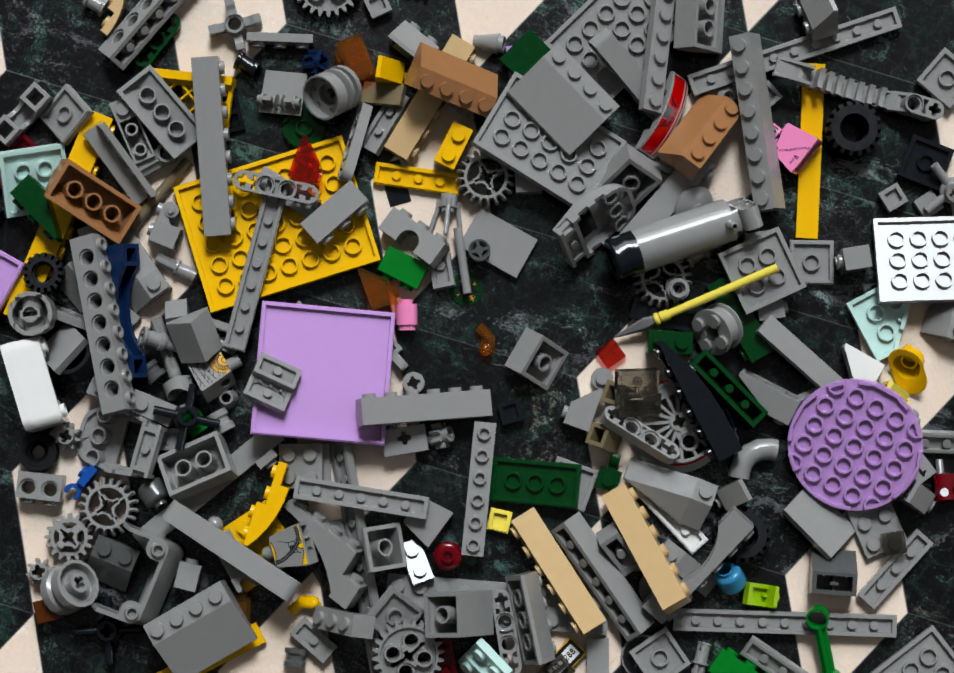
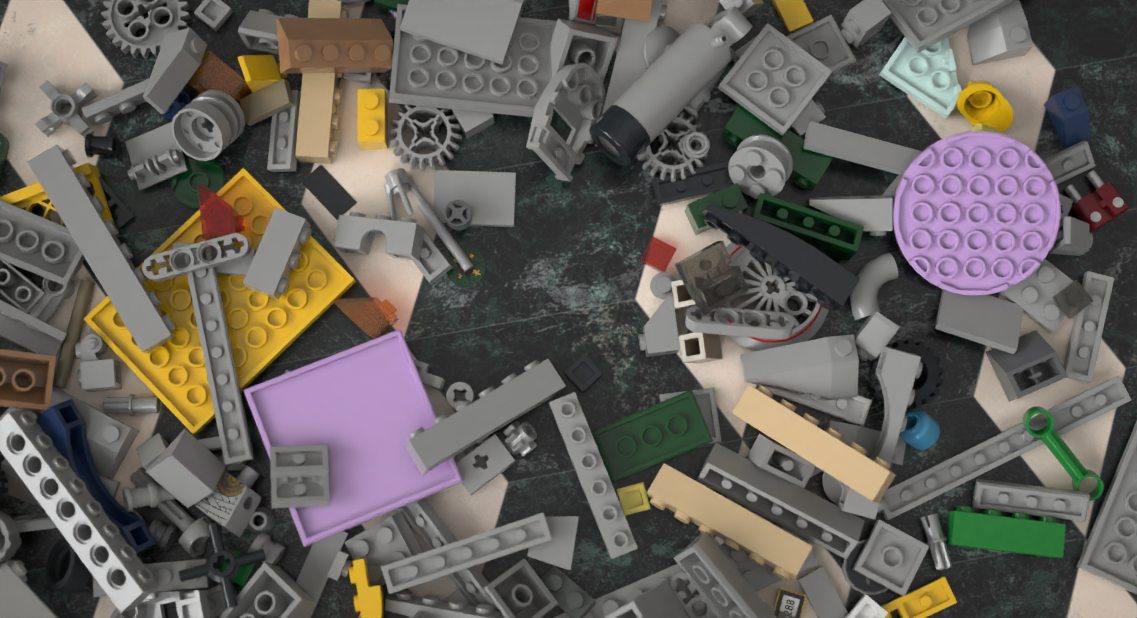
camera: 30 degrees left, 5 degrees down
(64, 347) = (44, 559): light grey tile -> none
(330, 35) = (175, 65): none -> light grey slope
(355, 142) = (261, 167): light grey beam -> none
(403, 269) = (384, 278): green brick -> none
(406, 314) = (414, 326): bright pink brick -> none
(416, 178) = (348, 175): yellow tile -> none
(447, 555) = (597, 568): dark red head -> none
(488, 340) = (518, 309): clear orange arm -> none
(536, 358) = (581, 300): light grey slope -> none
(609, 477) = (727, 388): dark green plate -> none
(647, 323) = (682, 198): light yellow piece -> none
(761, 595) = (962, 430): lime bracket -> none
(860, 364) = (929, 127): white slope -> none

